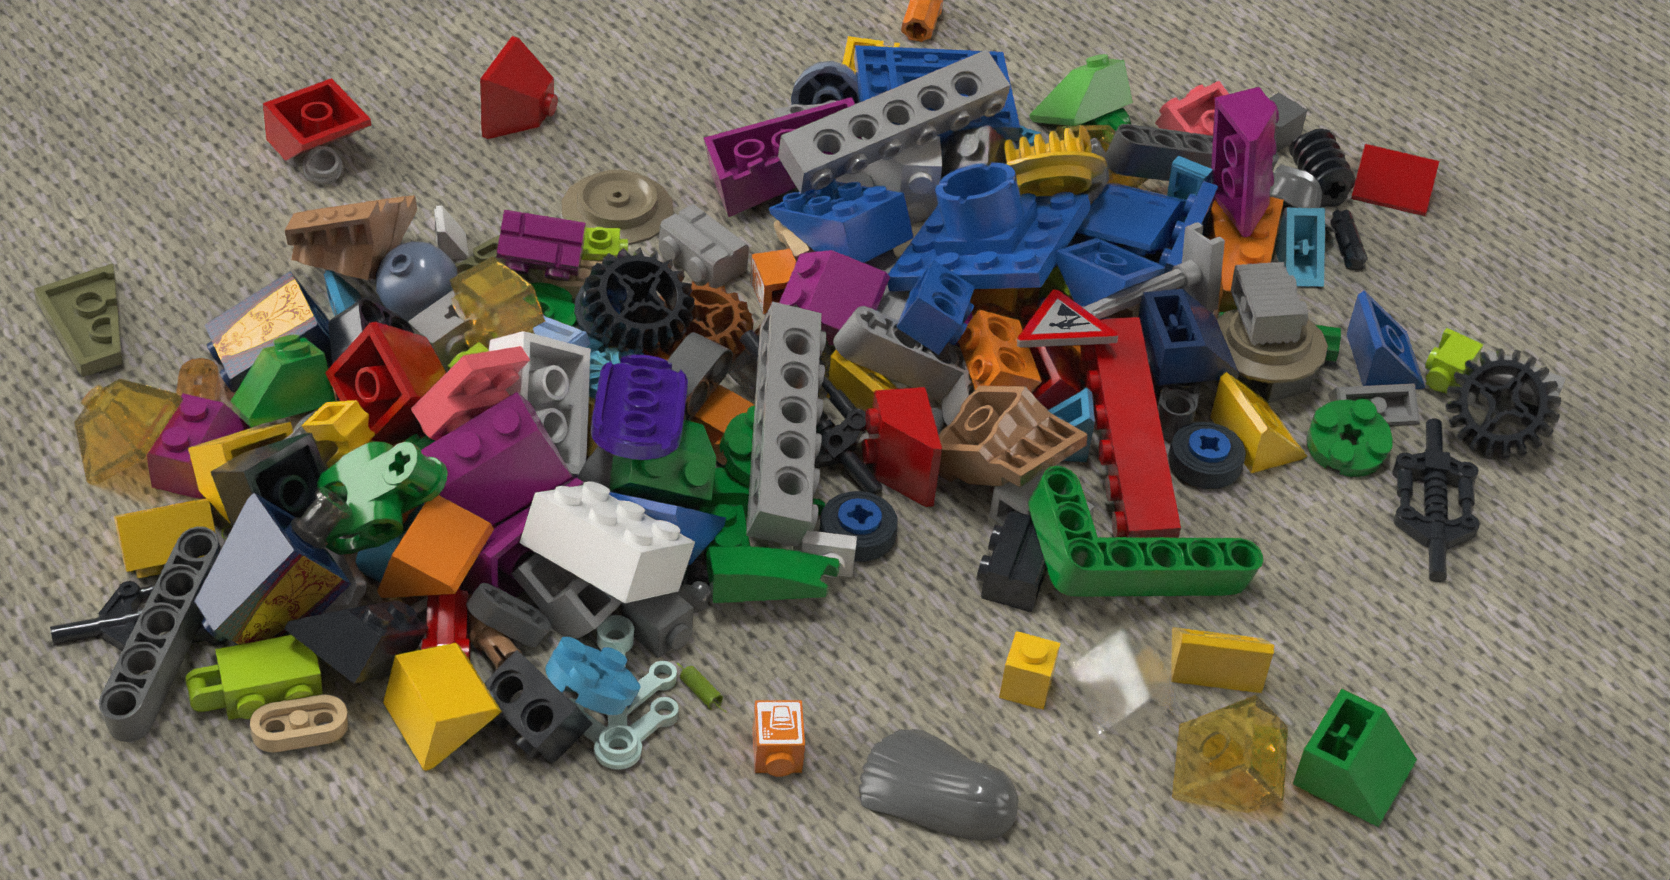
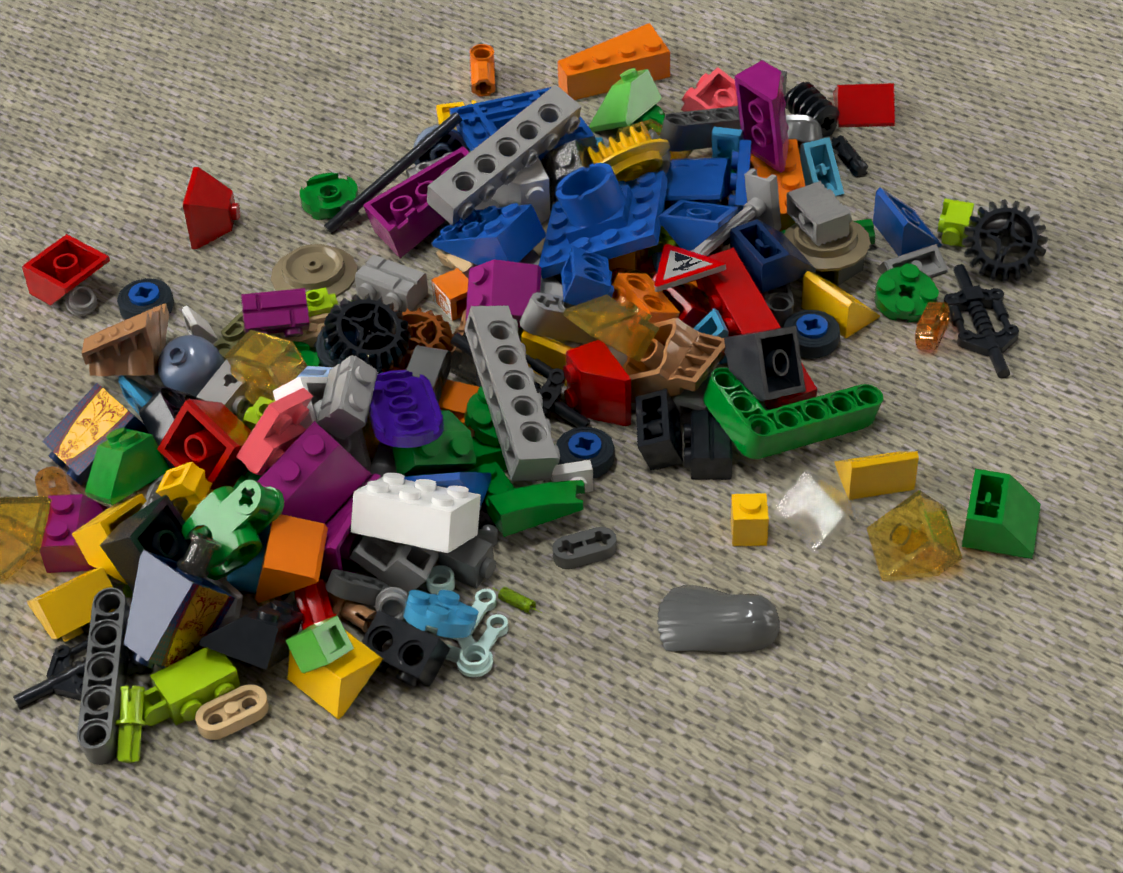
camera: 10 degrees left, 0 degrees up
(171, 702) = (130, 724): none -> lime axle
(399, 178) = (143, 296): none -> black wheel
(426, 671) = (319, 644): none -> bright green panel
(539, 645) = (392, 602): none -> light grey plate
(575, 373) = (347, 397): none -> light grey brick
(658, 126) = (314, 196): none -> green plate
(690, 140) = (350, 210): none -> black bar
(778, 737) = (589, 618): orange brick -> none
(810, 646) = (584, 548): none -> dark grey beam
(946, 373) = (615, 324): none -> clear yellow slope
(960, 523) = (659, 430): none -> black brick
(1065, 41) = (600, 66): none -> orange wedge
(1122, 476) = (767, 362): none -> black slope
(1367, 488) = (932, 325): none -> clear orange beam

